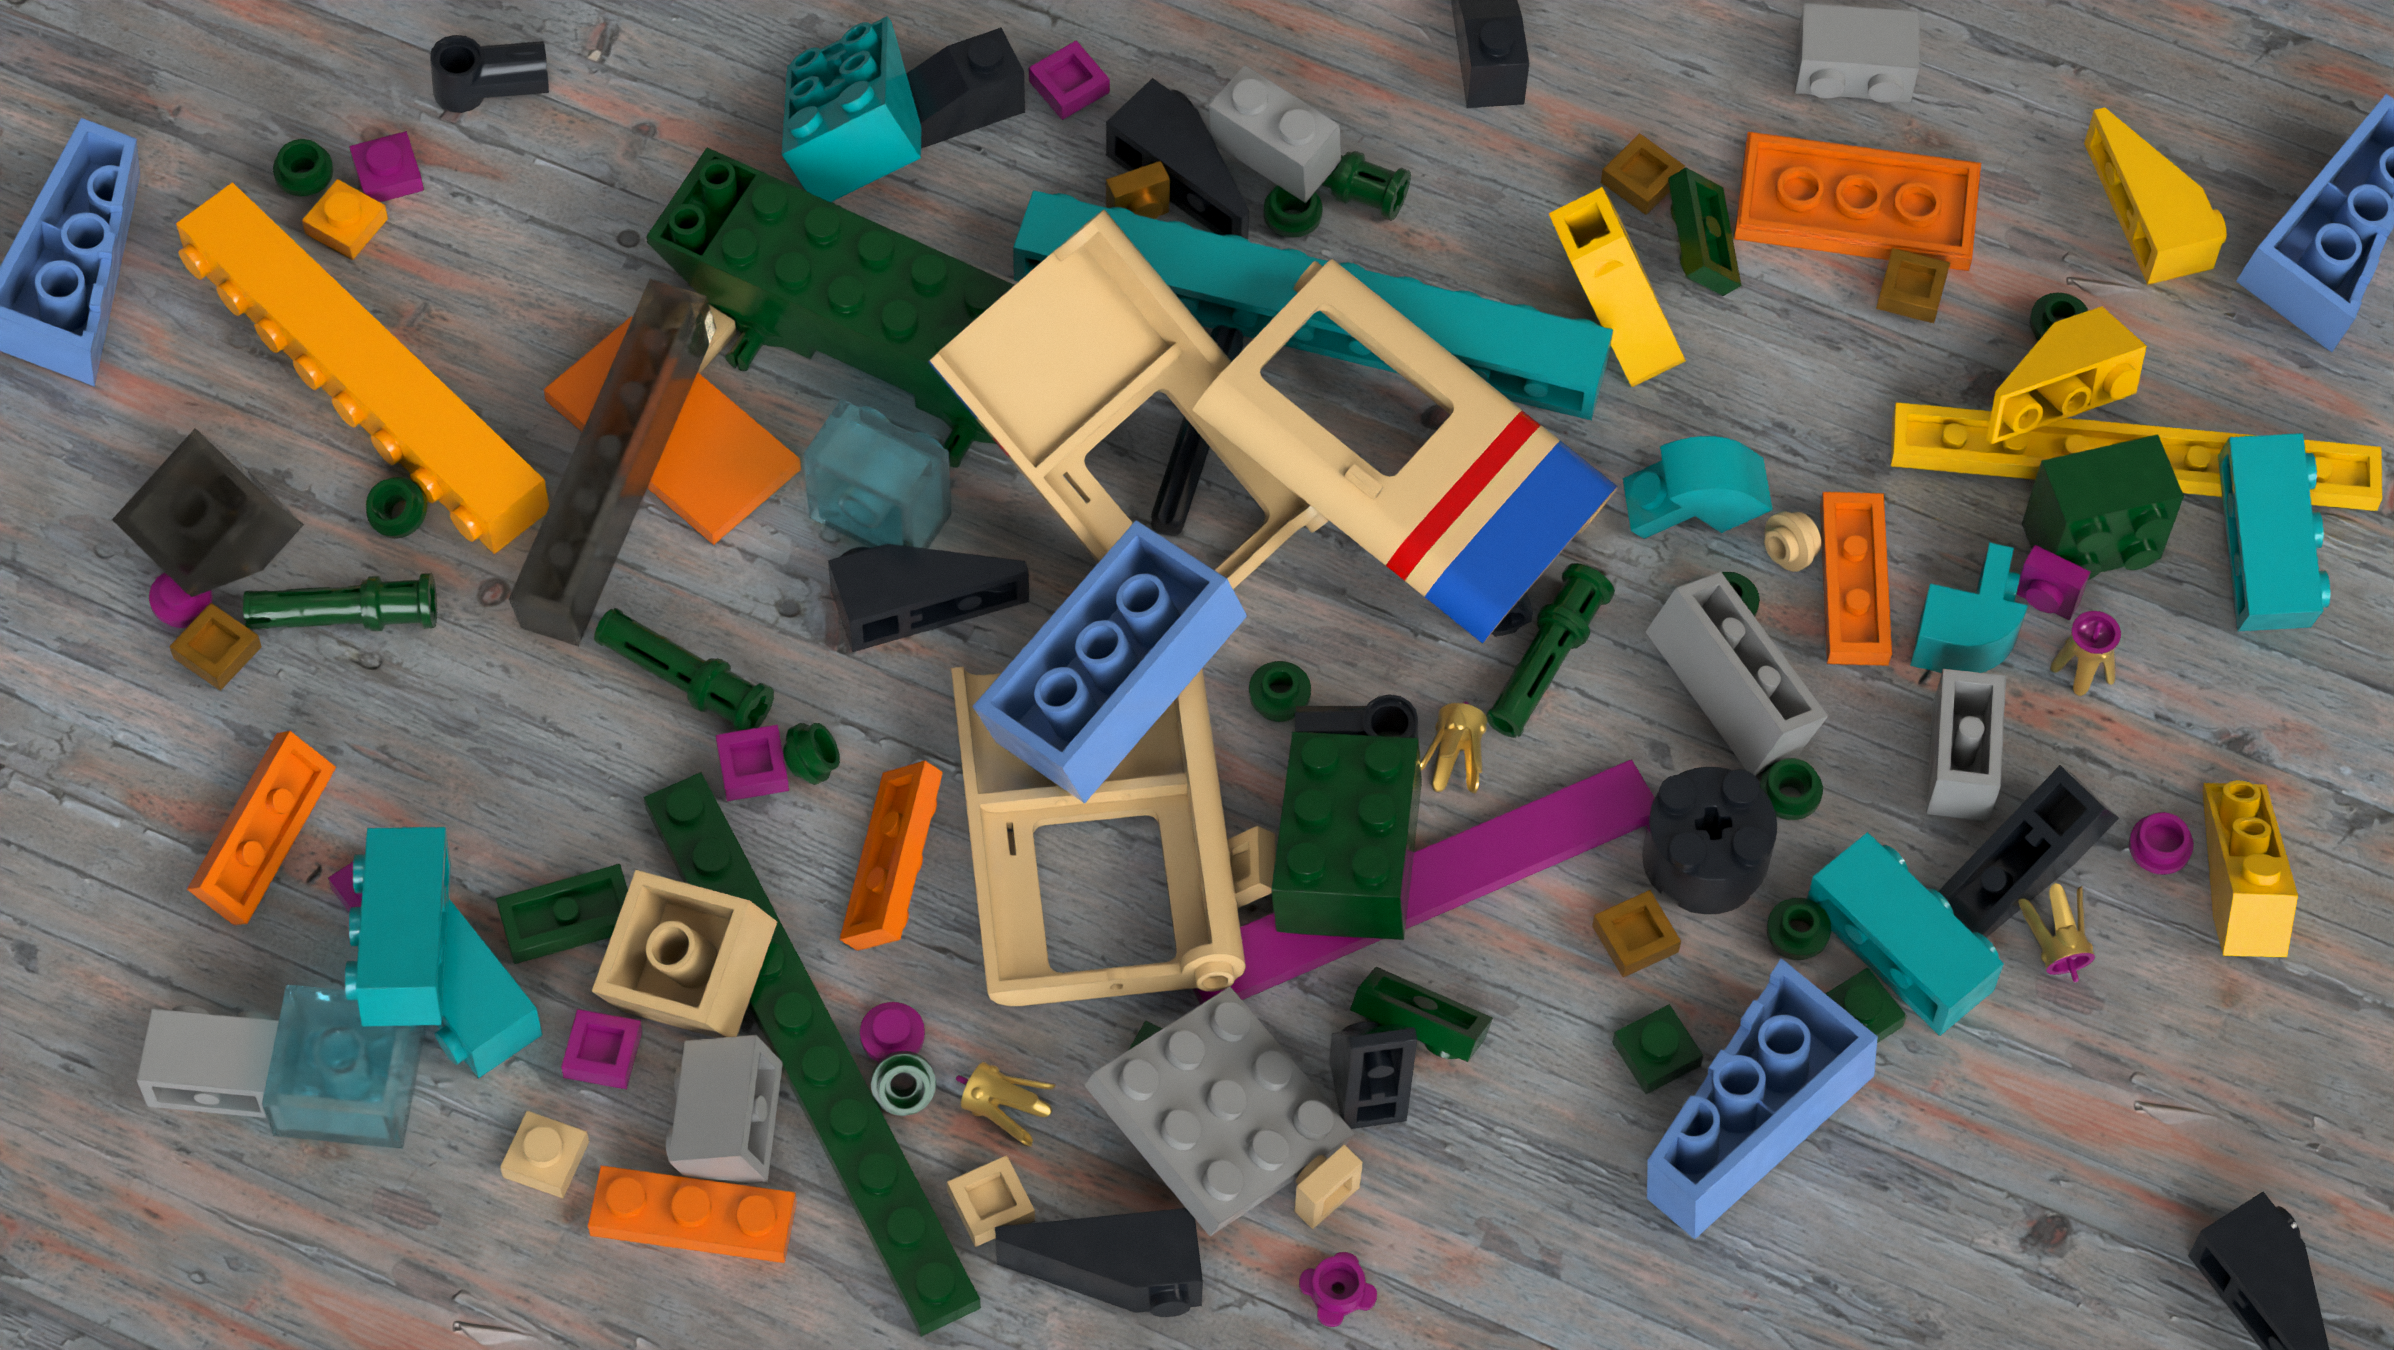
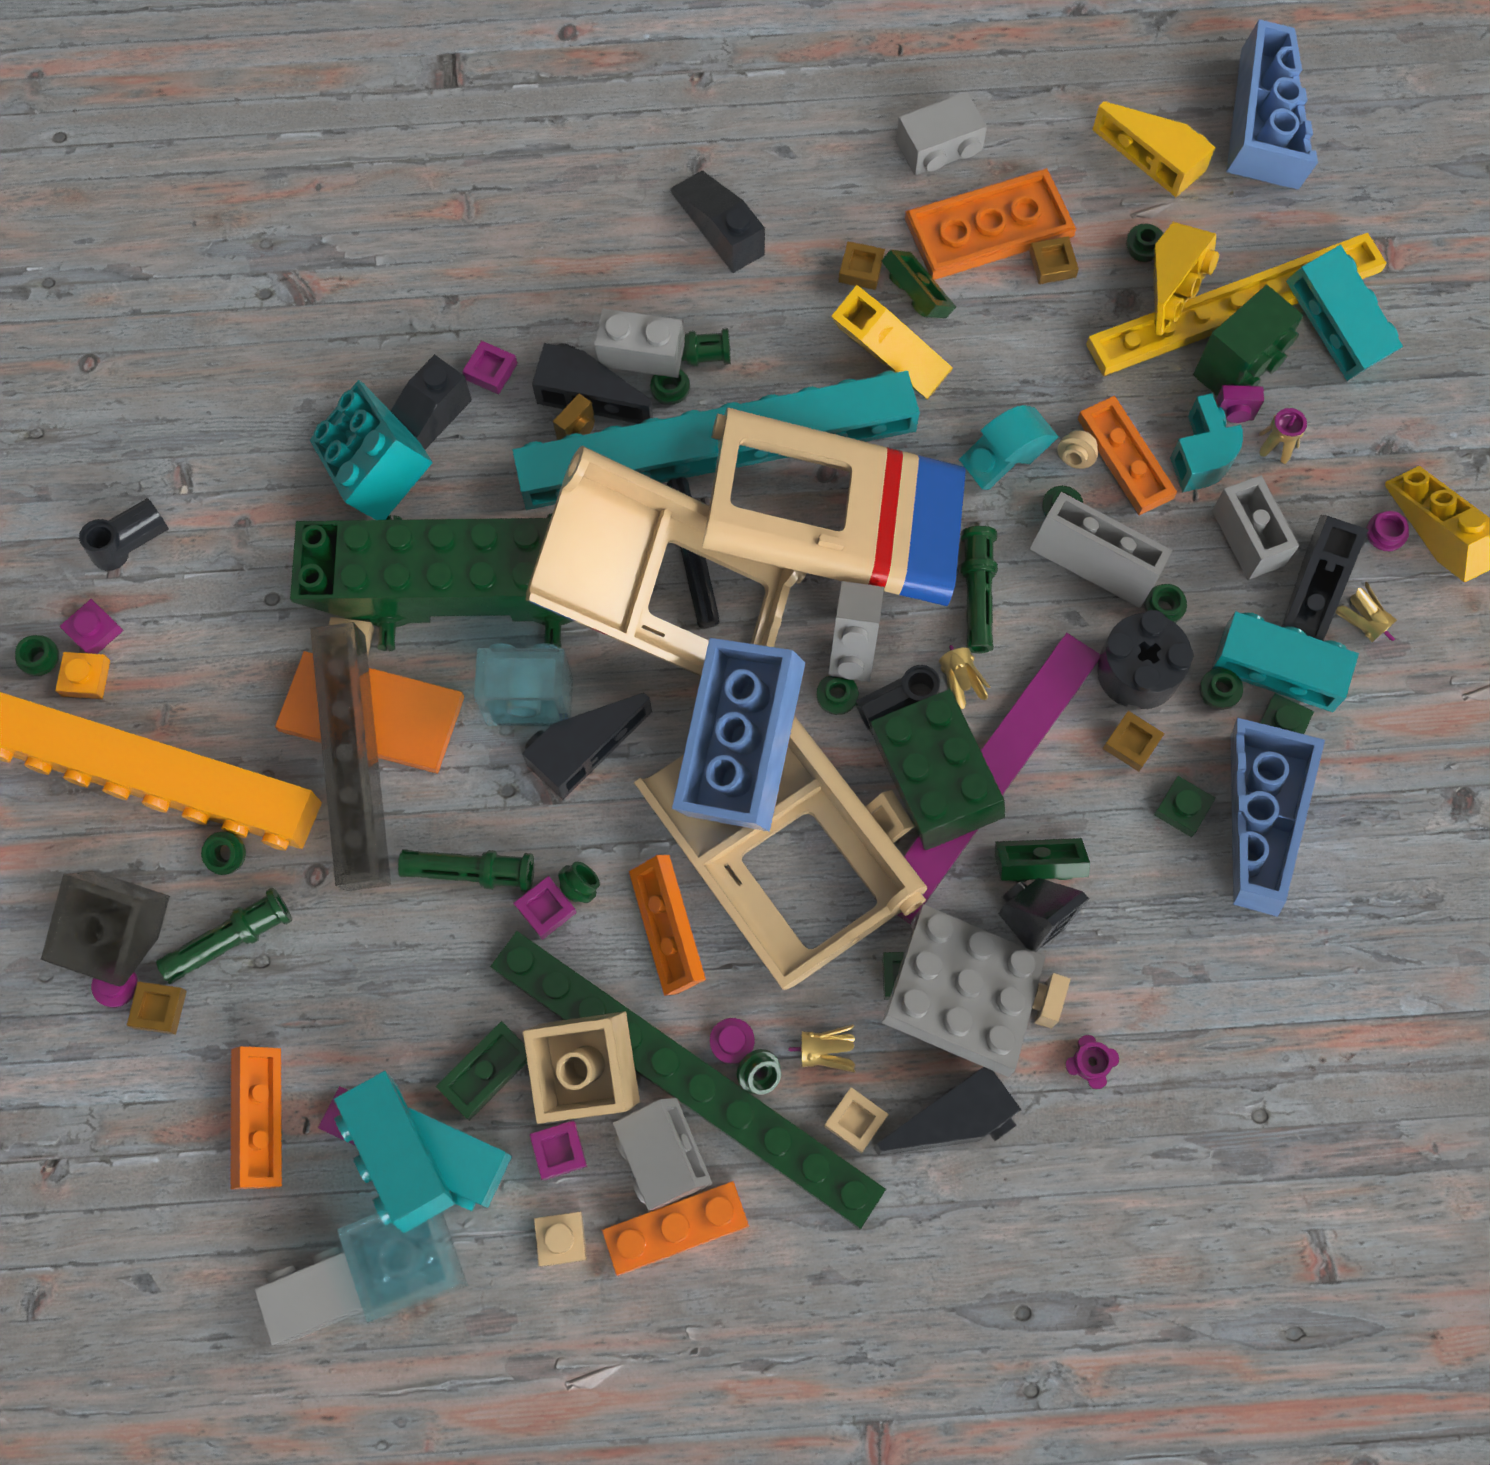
camera: 25 degrees left, 10 degrees up
(1341, 615) = (856, 631): none -> light grey brick

